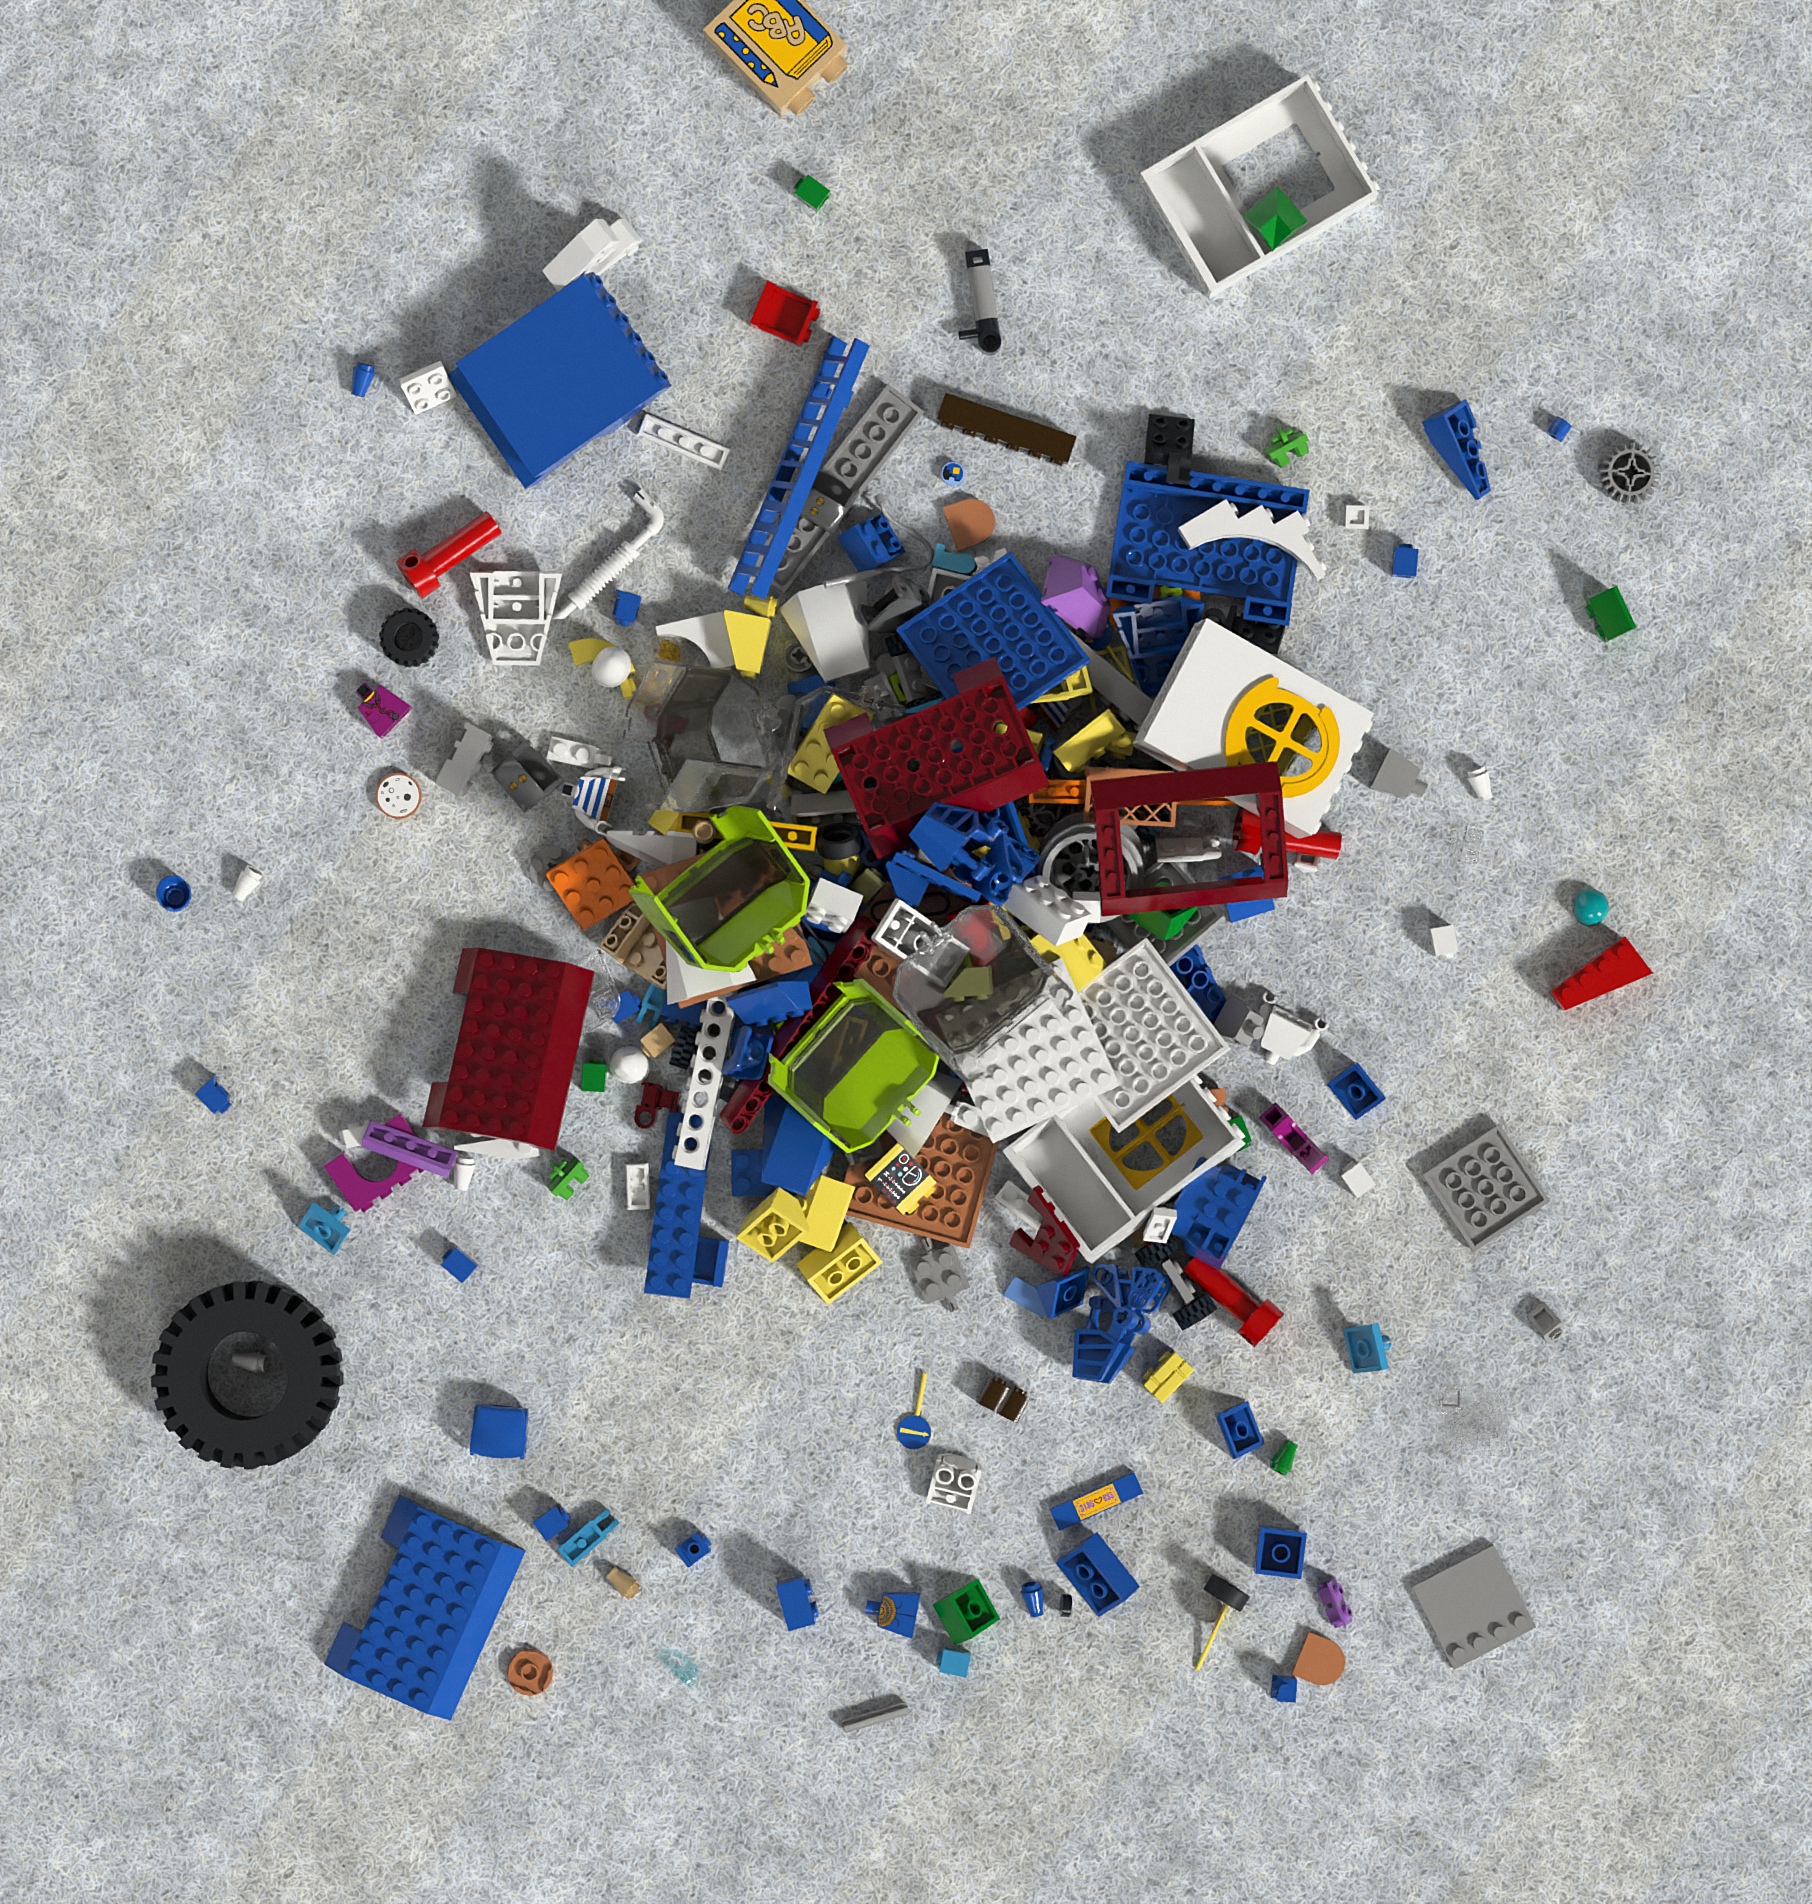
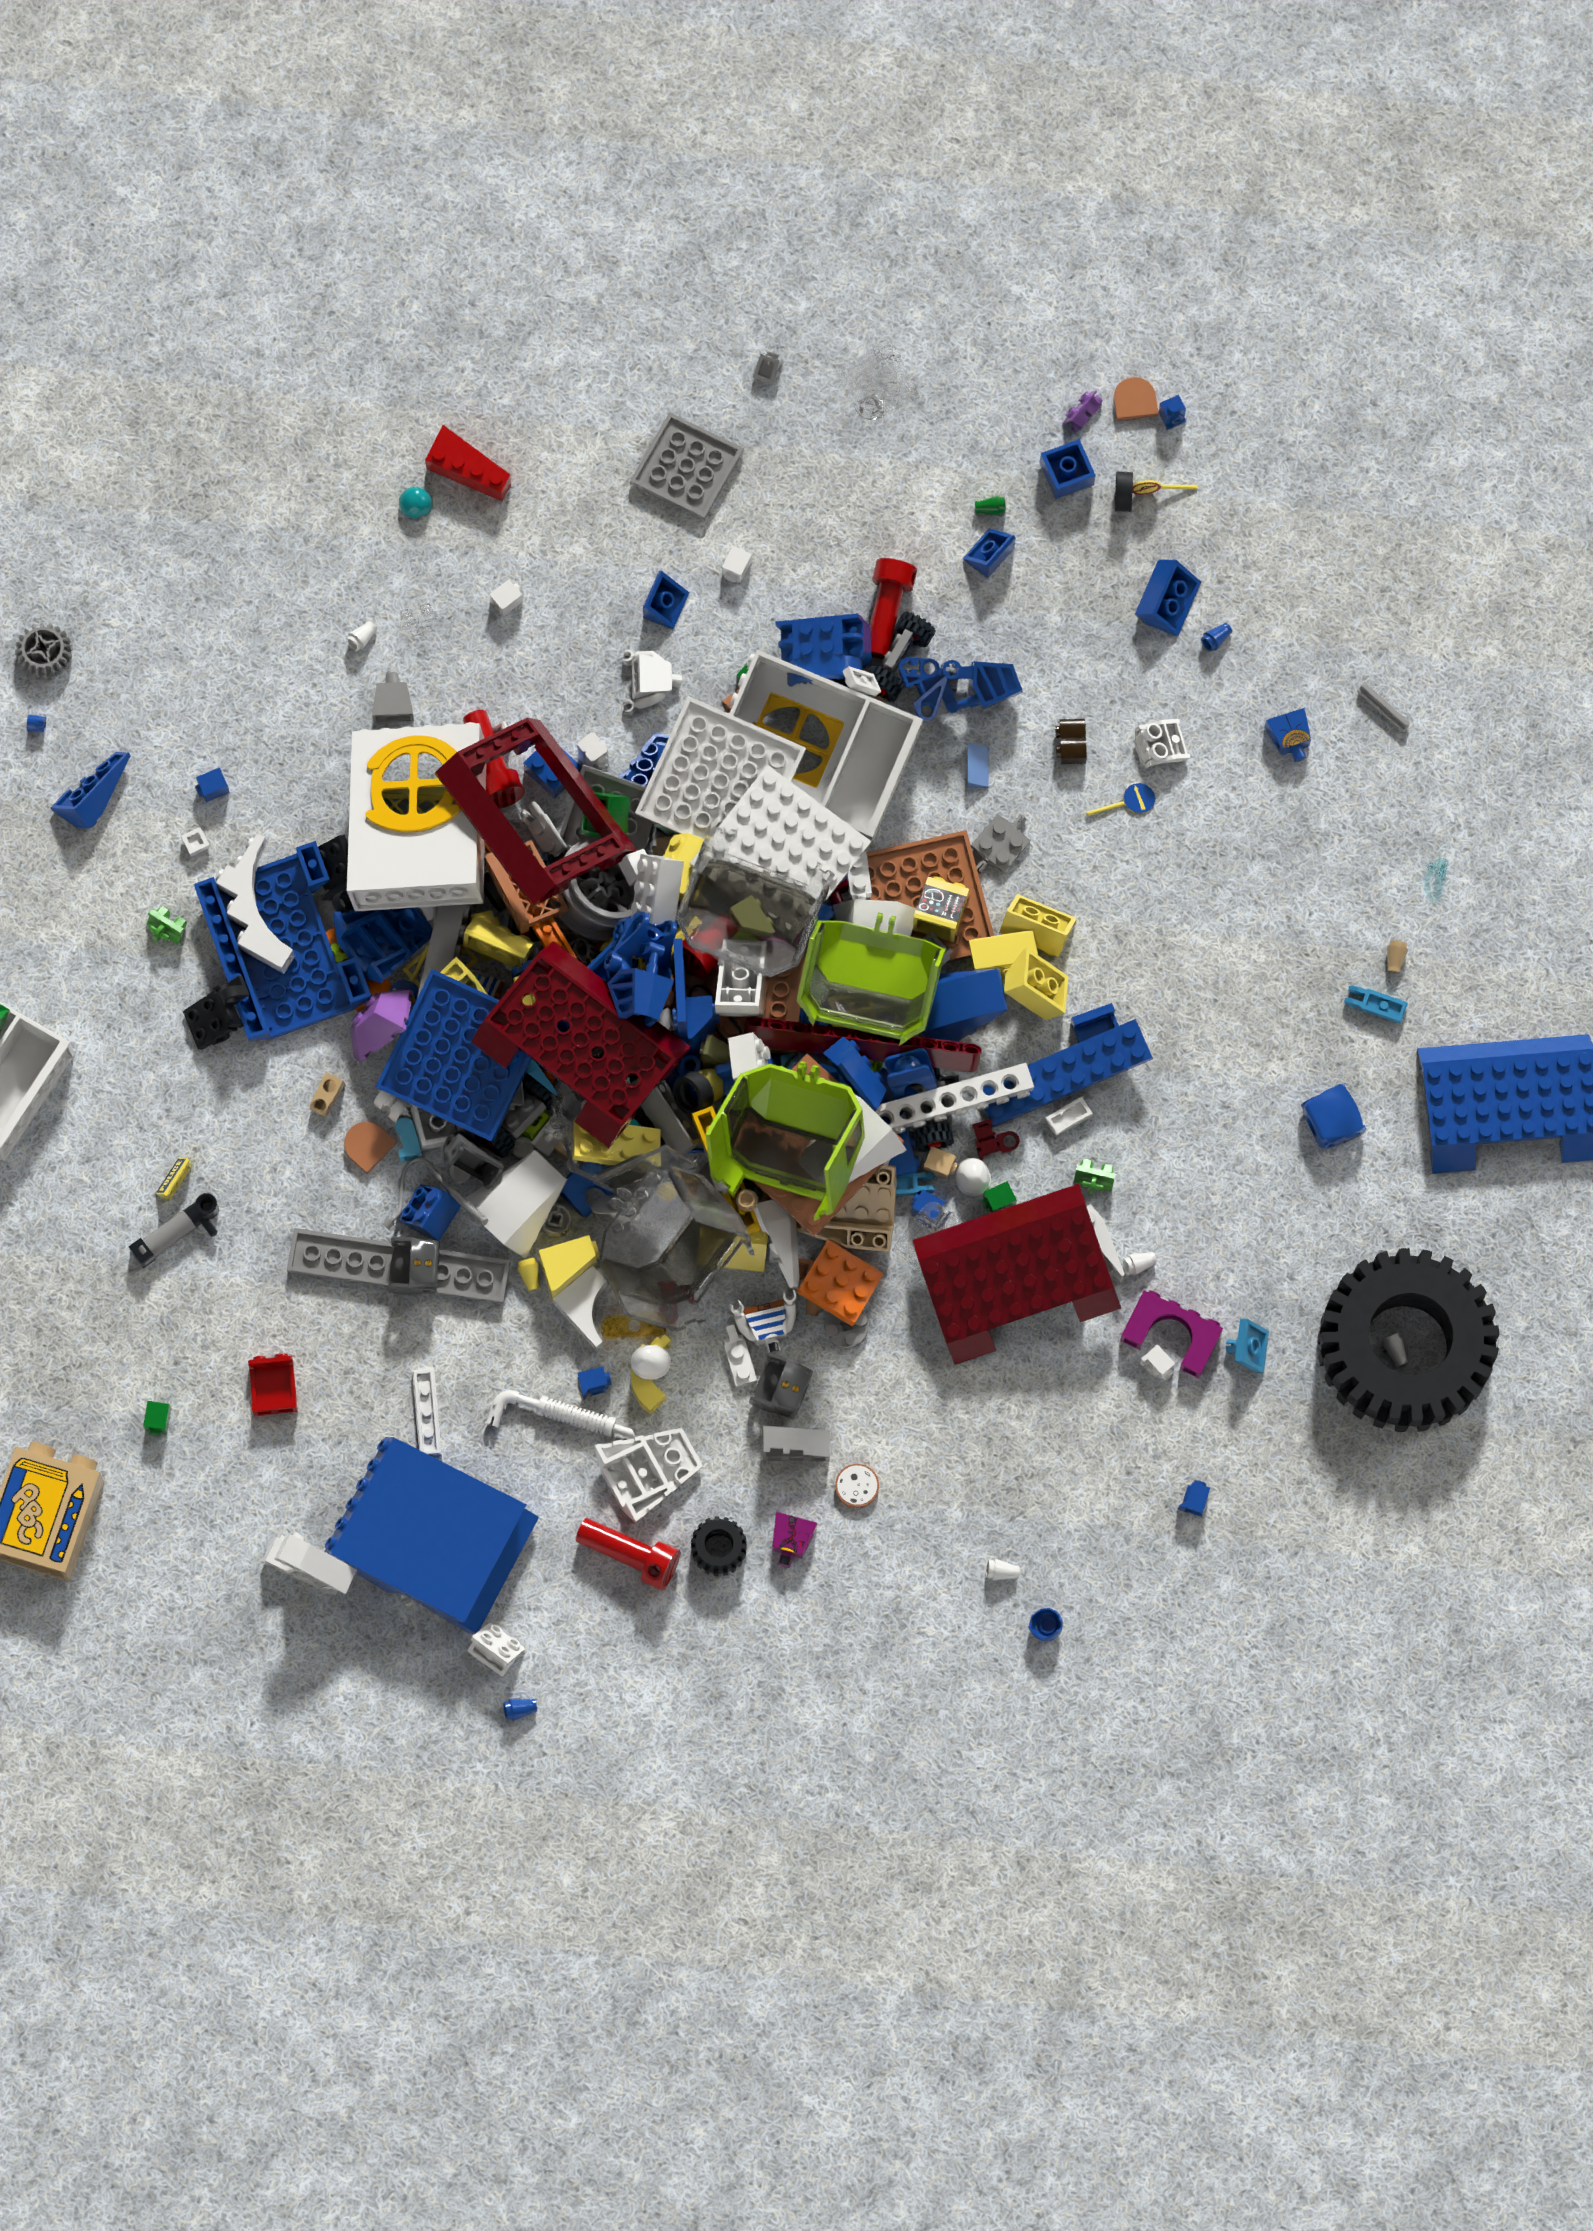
camera: 125 degrees left, 15 degrees down
(409, 1149) = (1145, 1311): medium lavender slope -> none
(458, 1264) = (1216, 1224): blue brick -> none
(534, 1677) = (1515, 998): nougat tile -> none
(552, 1522) = (1381, 1037): blue brick -> none
(687, 1555) = (1338, 922): blue brick -> none
(747, 1173) = (1006, 1032): blue brick -> none
(792, 509) = (395, 1284): blue ladder -> none
(796, 1602) = (1329, 810): blue brick -> none
(952, 473) = (334, 1180): tile -> none
(953, 1661) = (1303, 669): dark azure brick -> none
(966, 1612) = (1258, 680): green slope -> none
(1006, 429) = (272, 1154): dark brown brick -> none
(1016, 1201) = (908, 802): white plate -> none
(1035, 326) = (174, 1178): none -> light yellow slope
(1038, 510) = (326, 1094): none -> tan leg
(1054, 1242) = (925, 756): dark red wing -> none
(1064, 1292) = (956, 738): blue slope -> none
(1065, 1605) = (1207, 609): black tile -> none
(1096, 1501) = (1110, 630): tile -> none
(1167, 1375) = (978, 626): light yellow brick -> none
(1235, 936) = (593, 752): none -> white brick
(1239, 1022) = (661, 714): light grey torso -> none
(1293, 1138) = (733, 626): magenta arch -> none
(1366, 1348) = (867, 487): dark azure tile -> none
(1473, 1606) = (1023, 308): light grey plate -> none
(1610, 614) = (168, 604): green slope -> none

